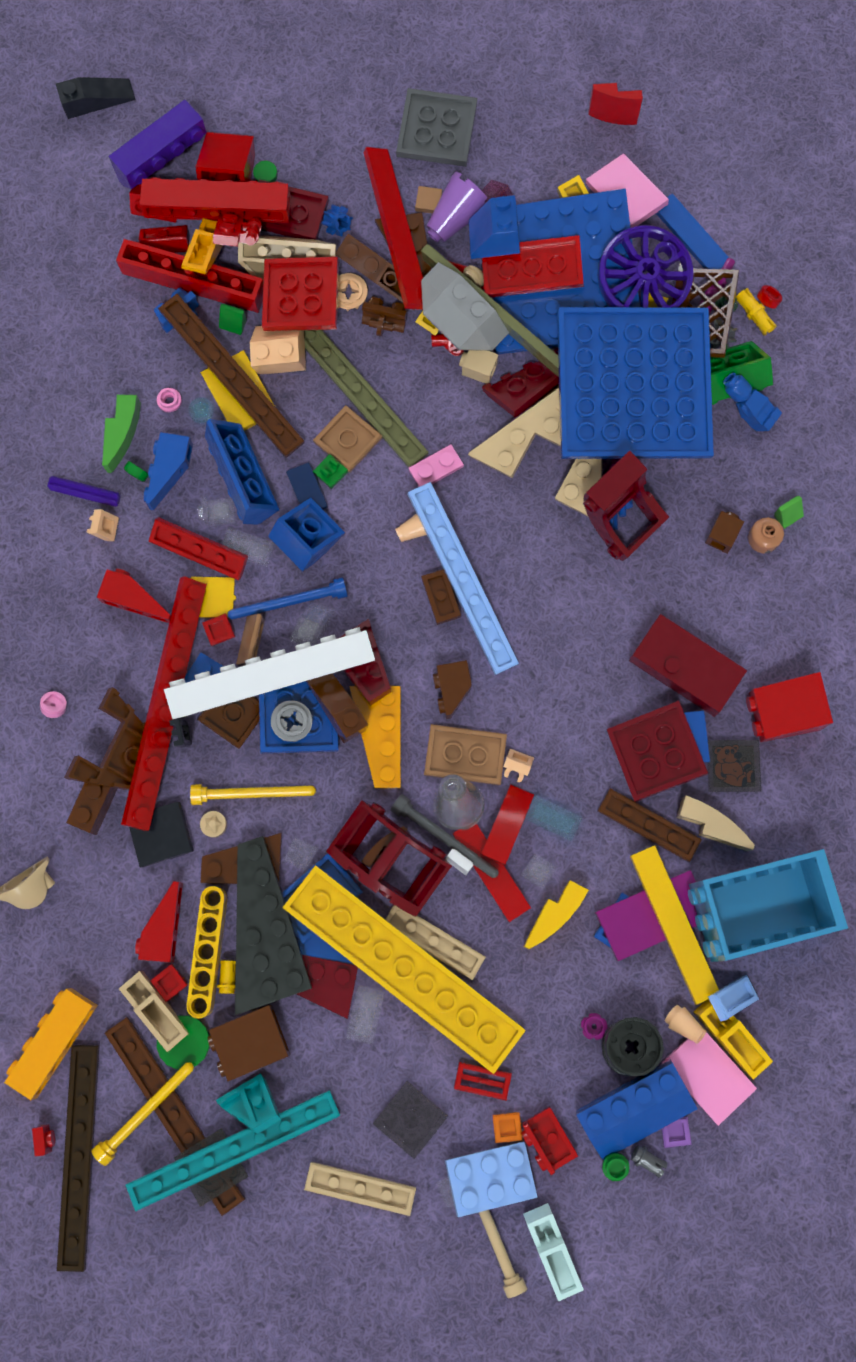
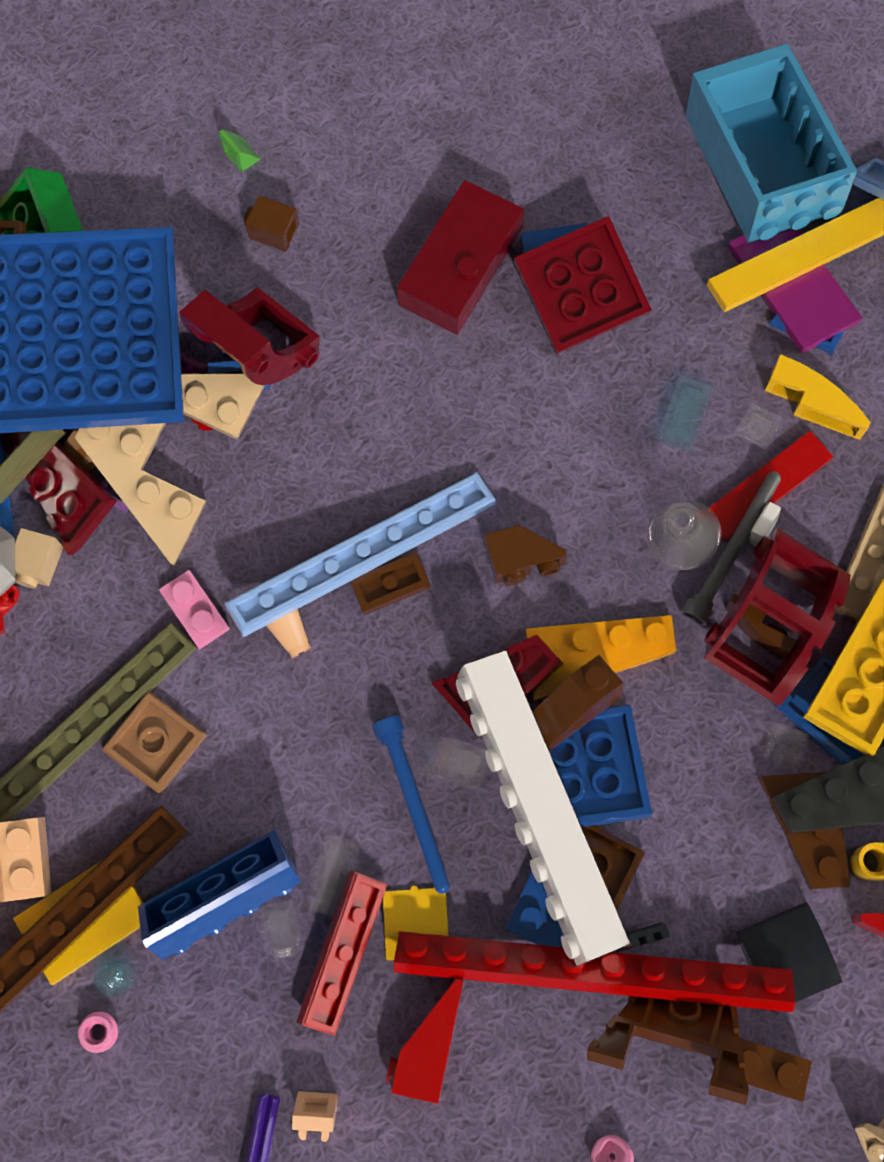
camera: 95 degrees left, 5 degrees down
(120, 430) = (153, 1104): bright green slope -> none
(135, 471) = (222, 1070): green tile -> none
(170, 463) = (205, 1013): blue slope -> none
(201, 794) = (720, 898): yellow piece -> none
(213, 824) = (760, 878): tan tile -> none
(218, 629) = (467, 905): red tile -> none
(250, 638) = (480, 854): medium nougat slope -> none
(285, 710) = (617, 763): light grey gear -> none
(305, 534) = (310, 785): blue slope -> none
(306, 485) = (236, 795): dark blue tile -> none
(330, 471) = (207, 762): green tile -> none
(465, 753) = (612, 533): medium nougat tile -> none
(507, 825) = (706, 467): red slope -> none
(518, 762) = (617, 460): light nougat tile -> none
(649, 825) = (676, 296): reddish brown tile -> none
(713, 824) = (666, 217): tan slope -> none
(734, 766) = (586, 196): tile -> none
(752, 405) = (91, 194): blue piece -> none
(766, 535) = (274, 172): nougat head -> none
(789, 708) = (506, 130): red slope -> none

